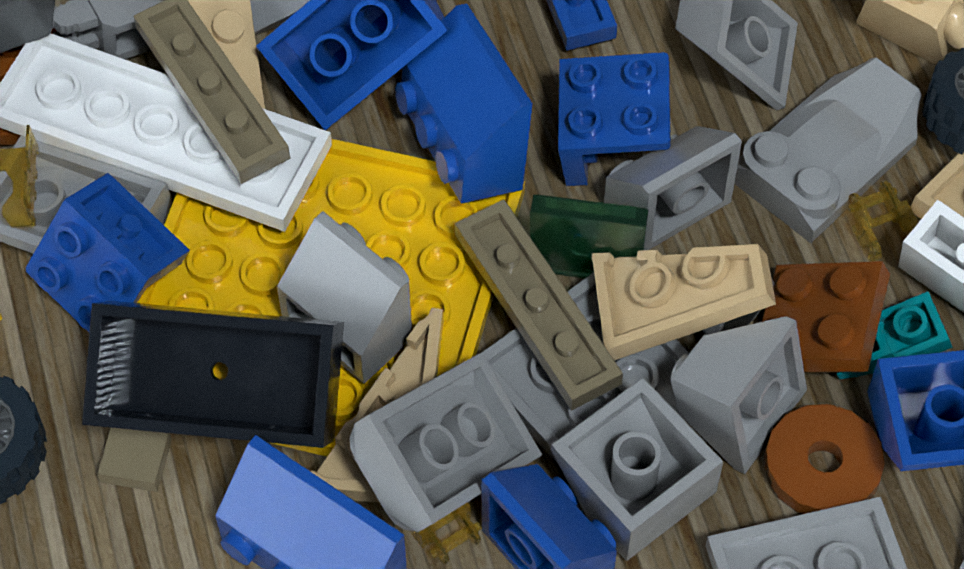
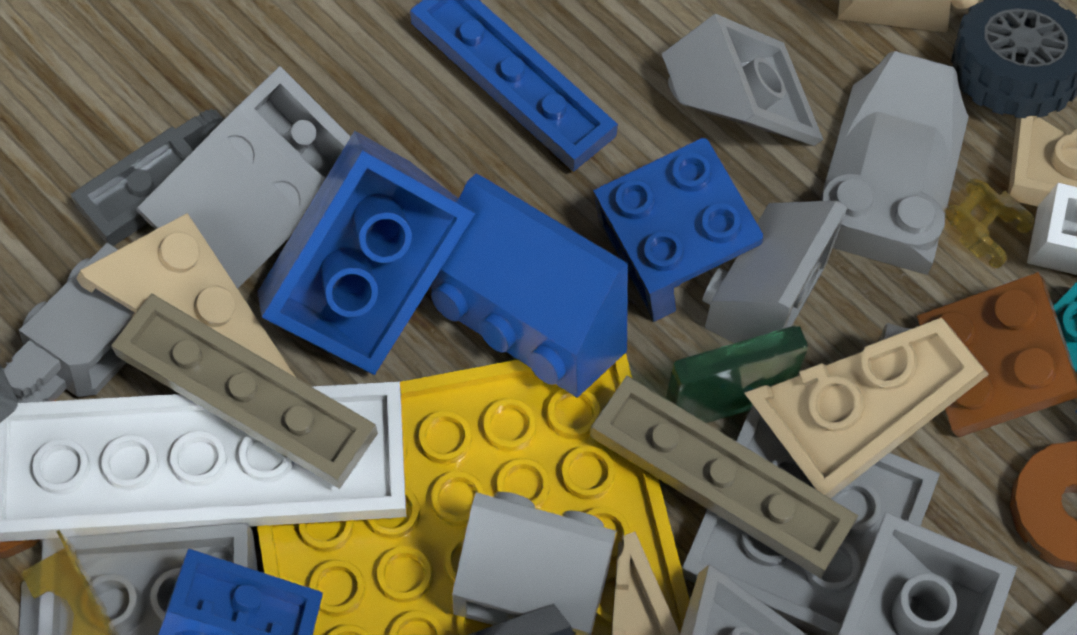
camera: 30 degrees left, 5 degrees up
(741, 386) = (969, 473): light grey slope -> none

